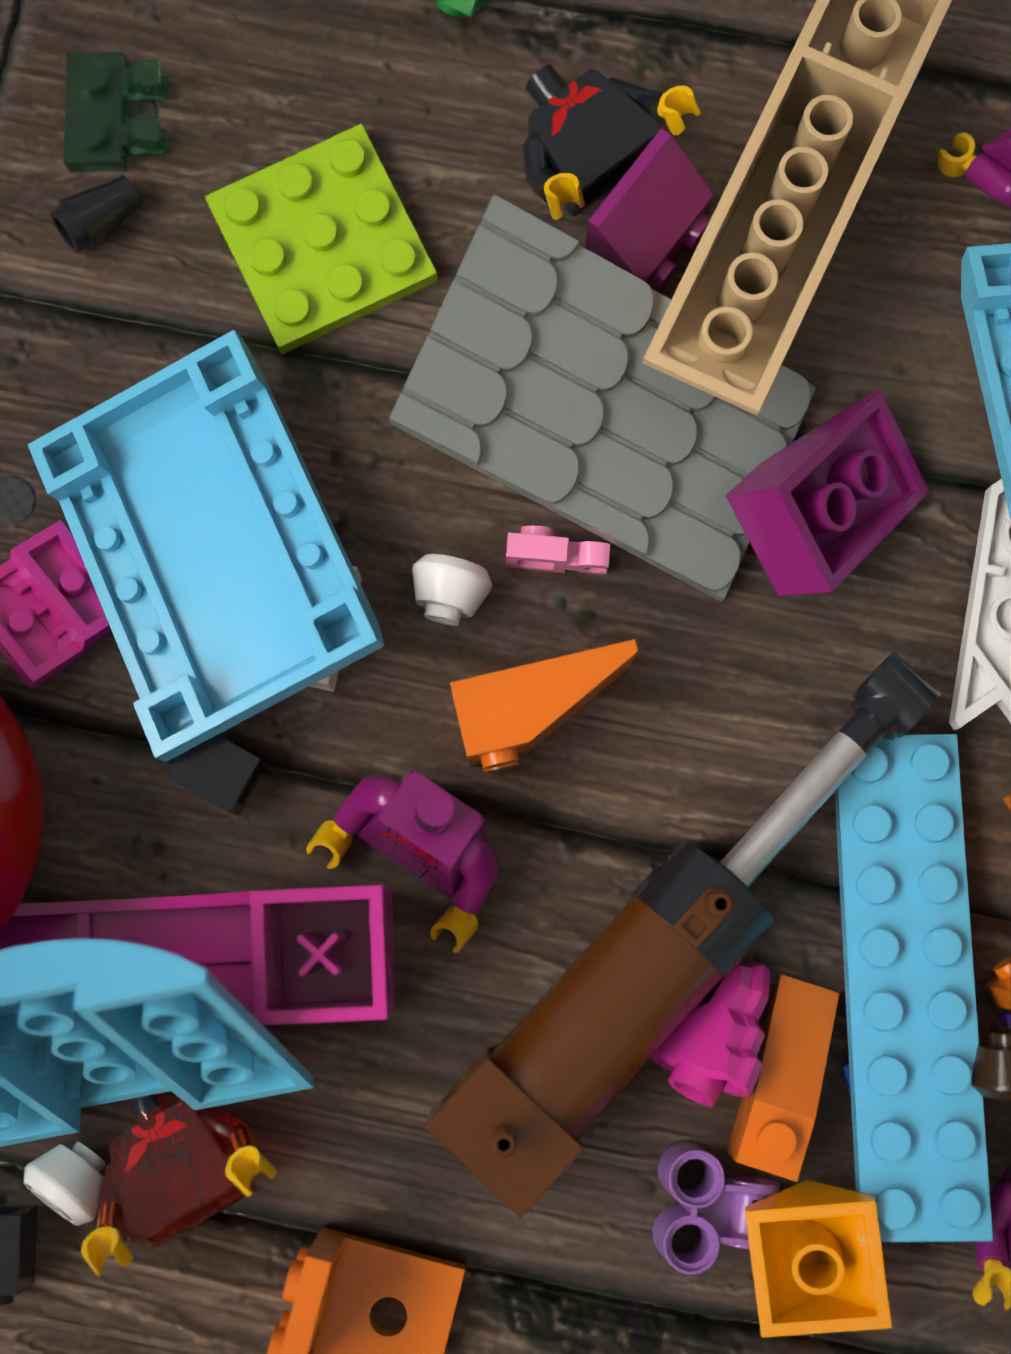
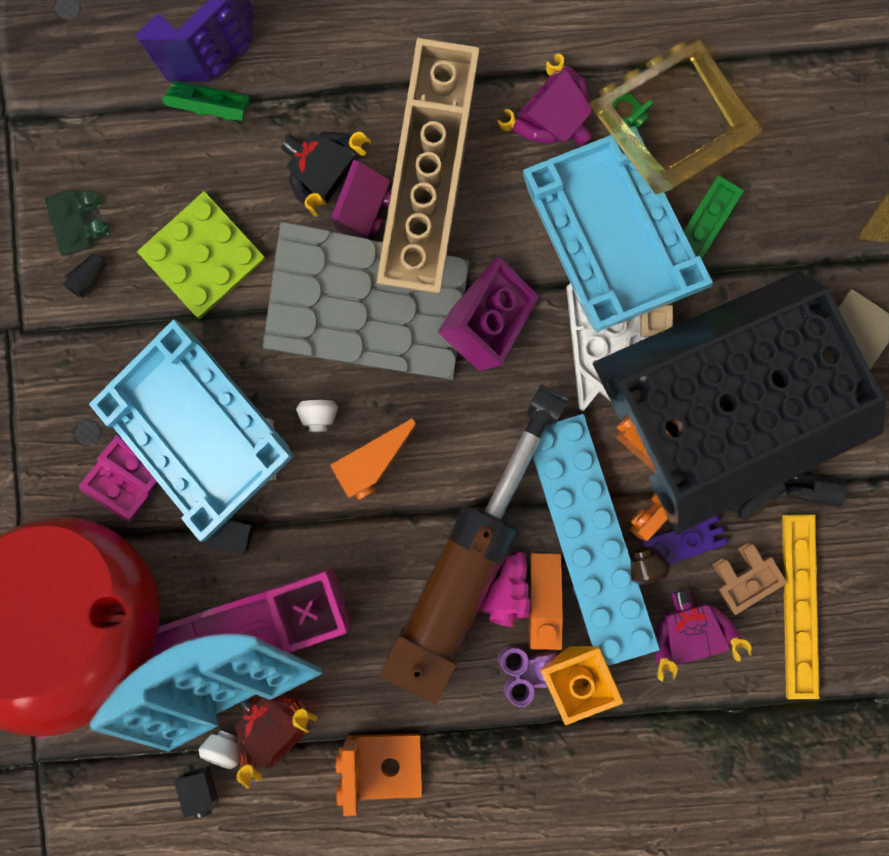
camera: 15 degrees left, 5 degrees up
(425, 834) = (341, 538): magenta torso -> none
(542, 551) = (355, 381): bright pink plate -> none

